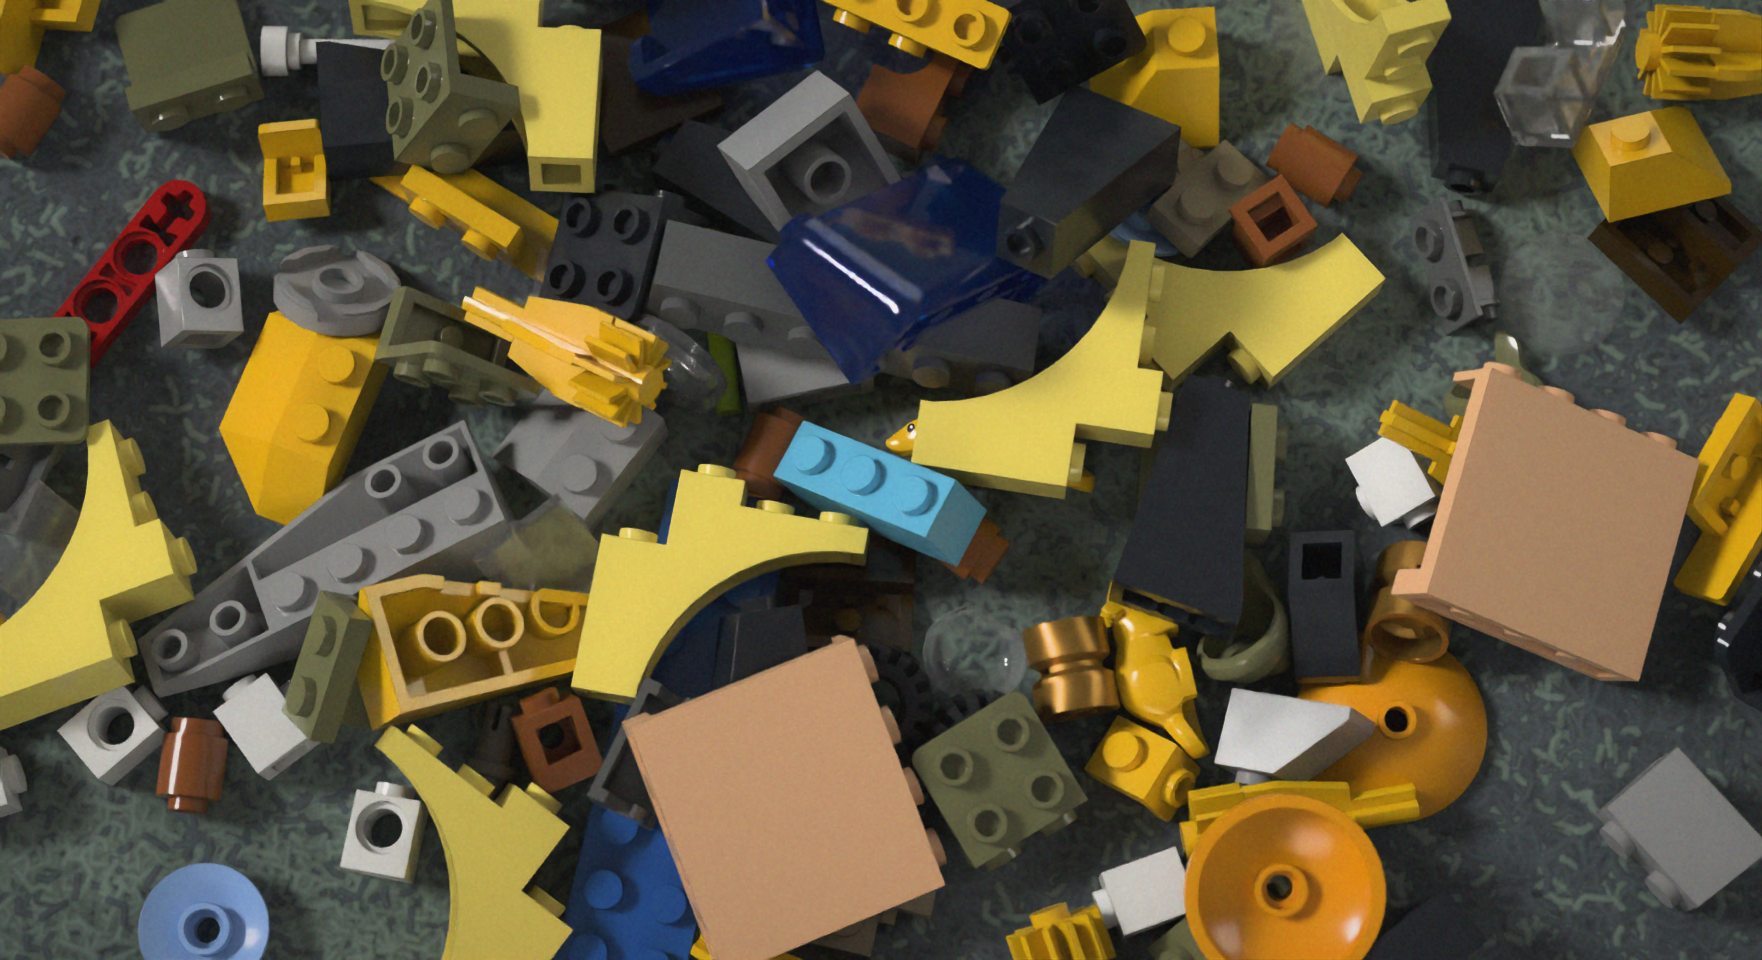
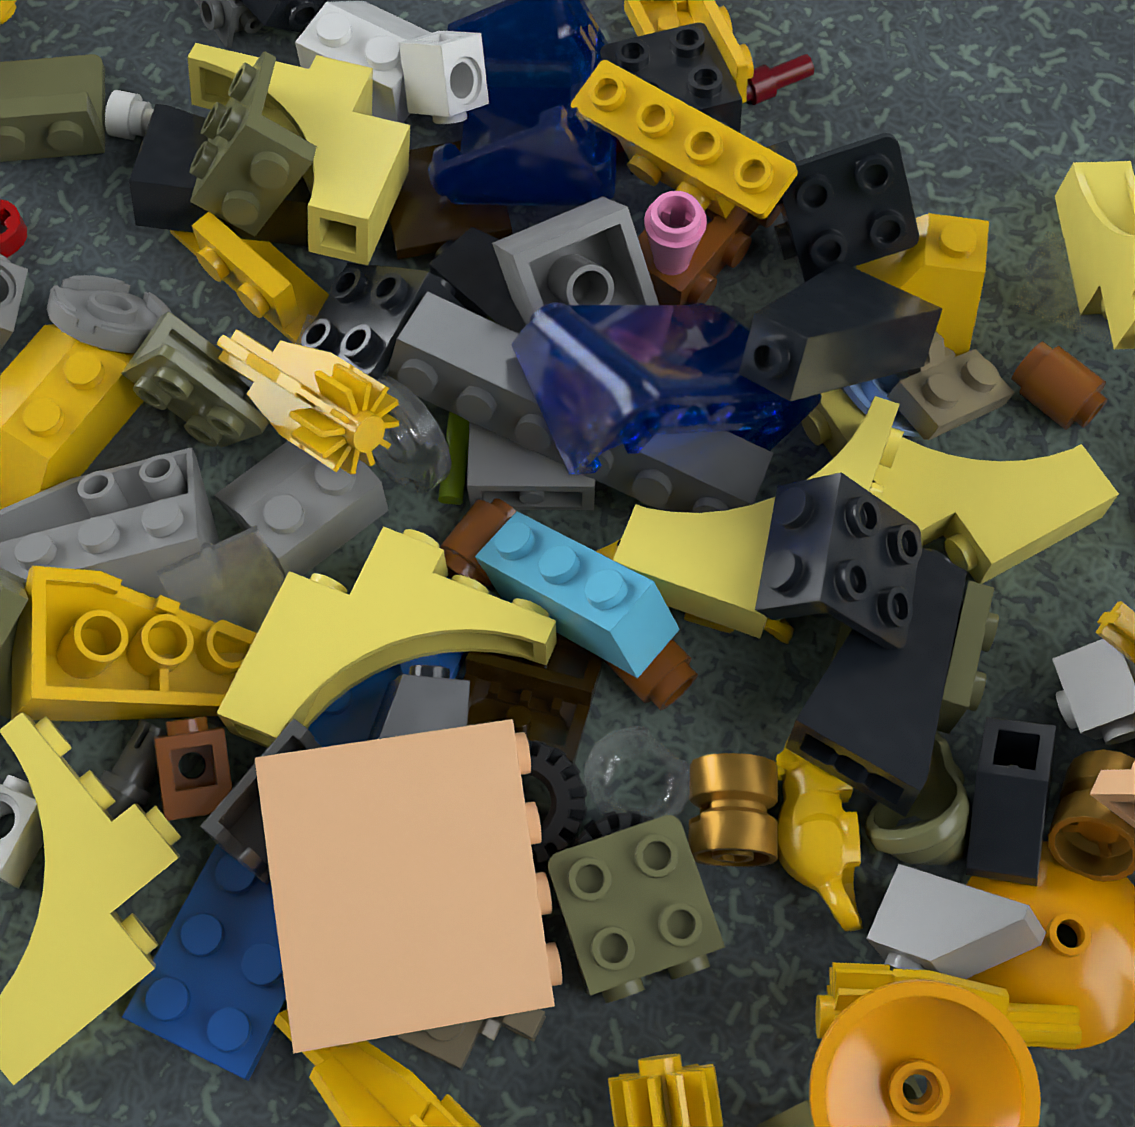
camera: 10 degrees right, 10 degrees down
(294, 170) = (106, 214): yellow bracket -> none
(898, 83) = (674, 230): none -> bright pink cone
(1127, 419) = (841, 556): none -> black bracket
(1142, 893) = (765, 1063): white brick -> none
(1144, 767) = (790, 930): yellow bracket -> none
(1271, 225) = (1012, 422): dark orange brick -> none

